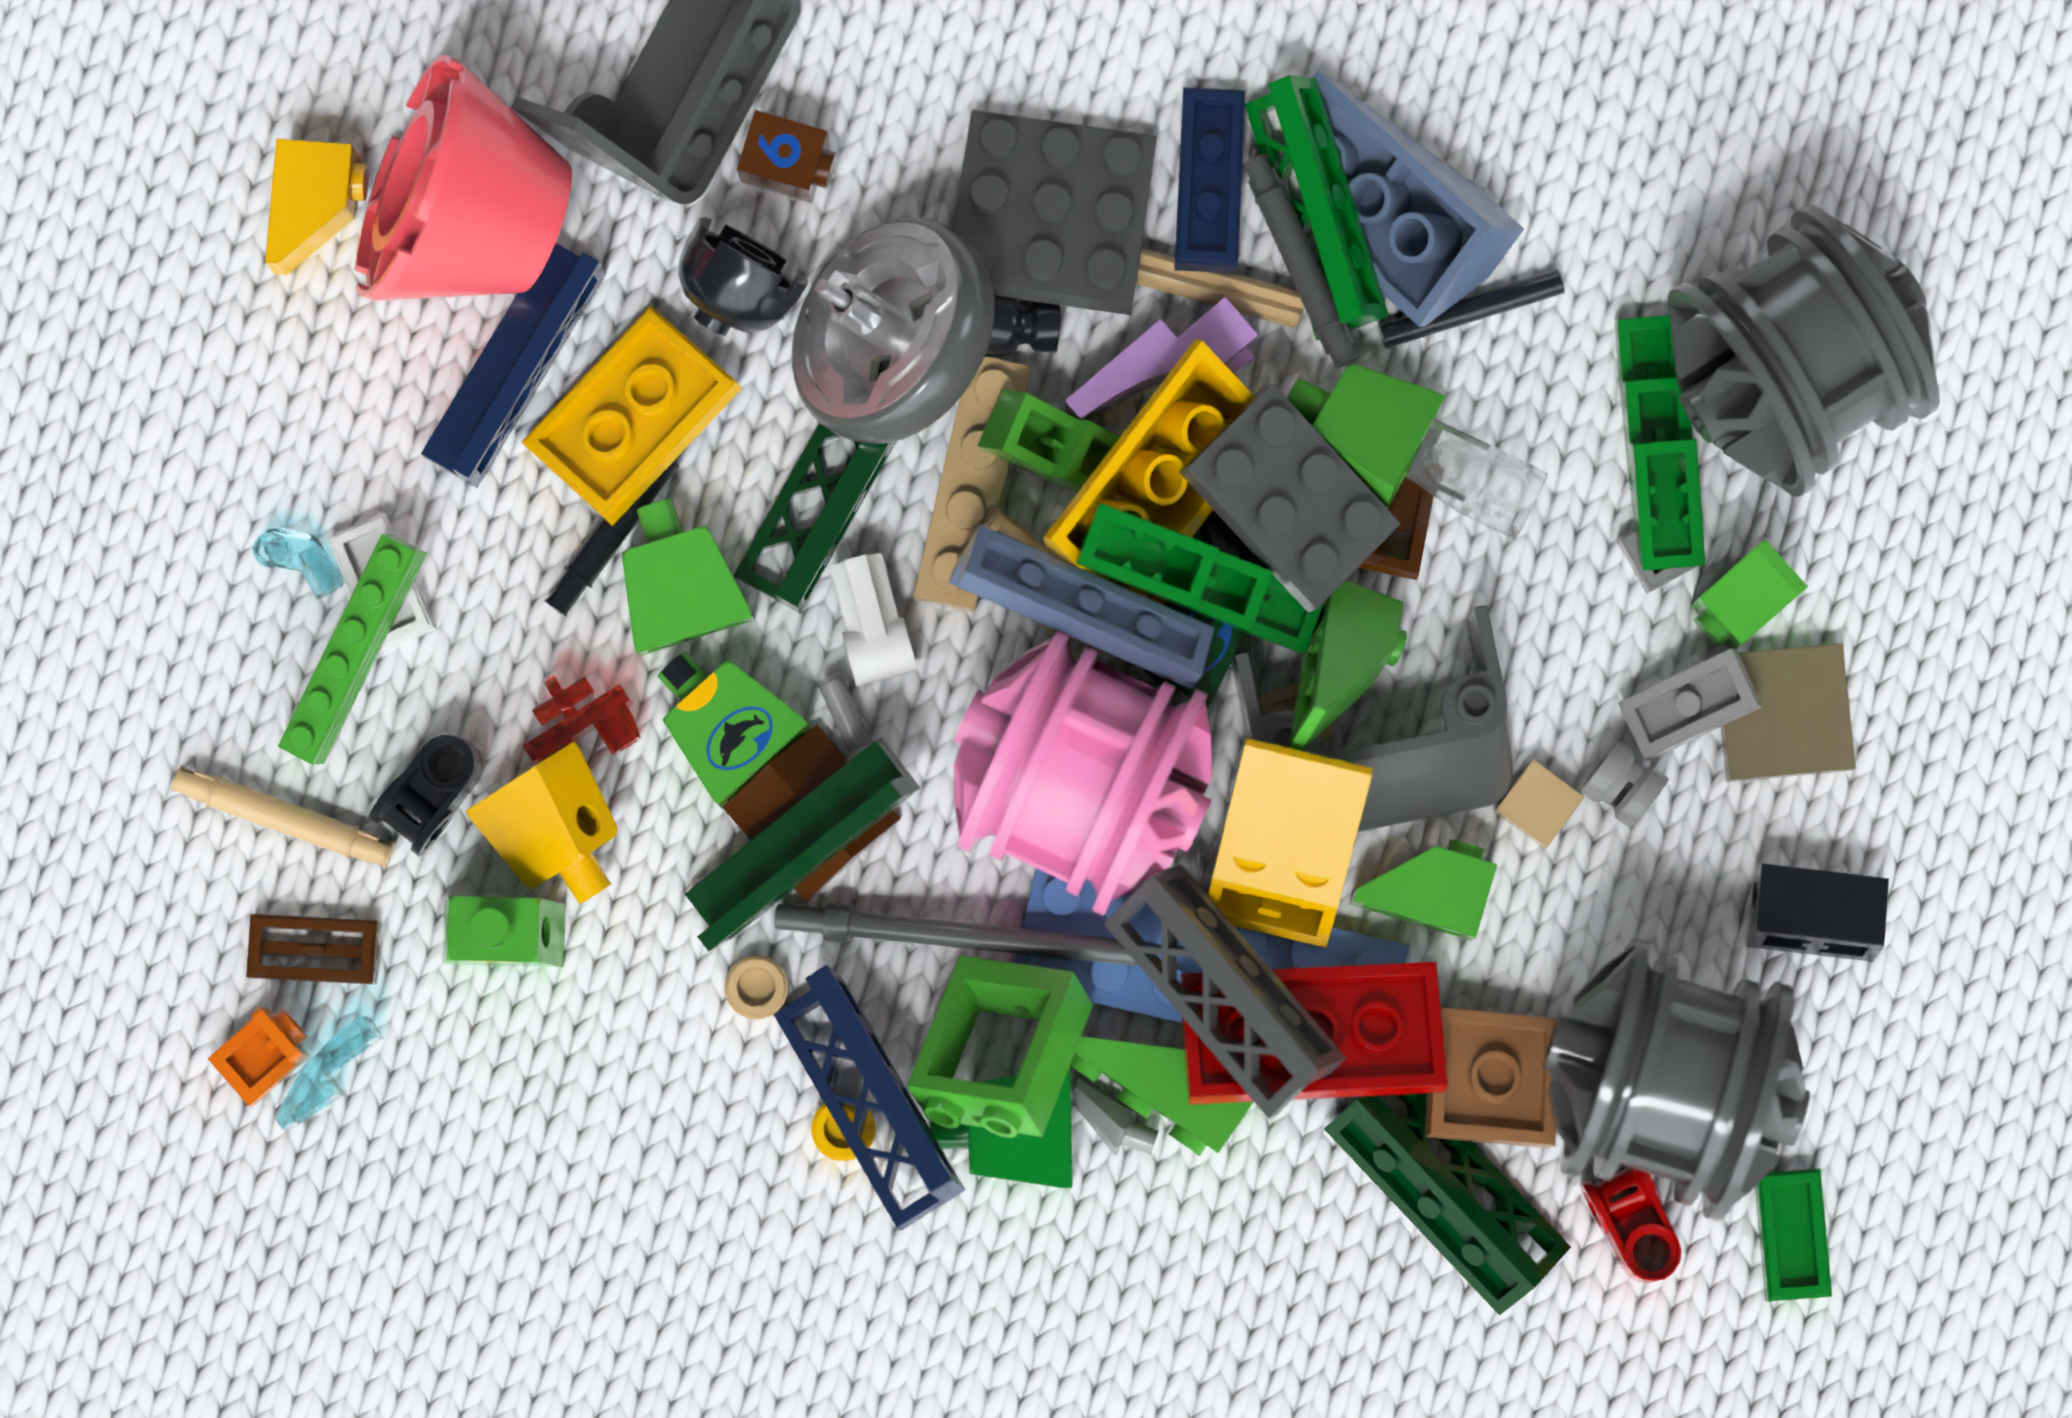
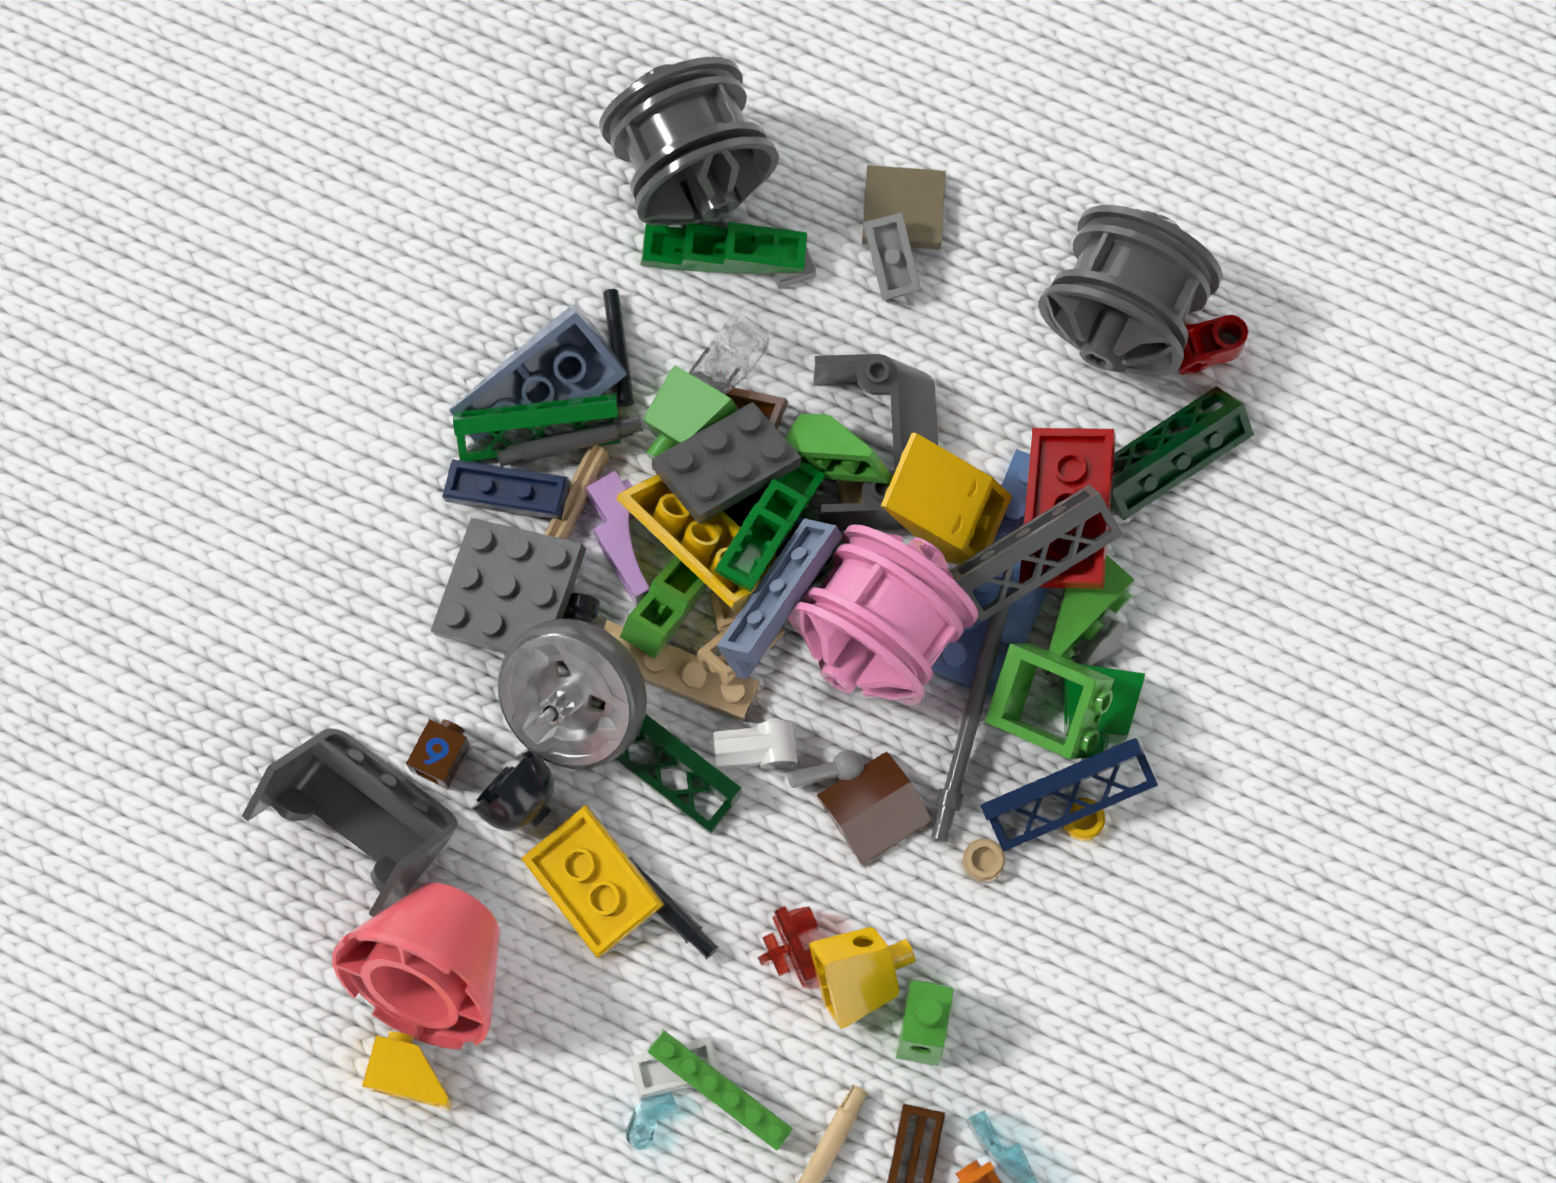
camera: 85 degrees left, 10 degrees down
(427, 794) = (824, 1055): black piece -> none
(513, 366) = (549, 958): dark blue fence -> none
(678, 583) = (711, 866): bright green torso -> none
(726, 724) = (810, 849): bright green torso -> none
(800, 842) = (898, 810): dark green fence -> none
(1434, 890) = (984, 424): bright green slope -> none
(1493, 1080) = (1110, 402): medium nougat plate -> none
(1539, 804) = (938, 358): tan tile -> none
(1611, 777) = (935, 304): light grey wheel -> none
(1747, 597) = (830, 208): bright green slope -> none
(1793, 1235) = (1237, 256): green tile -> none
(1818, 912) = (1031, 206): black hinge -> none

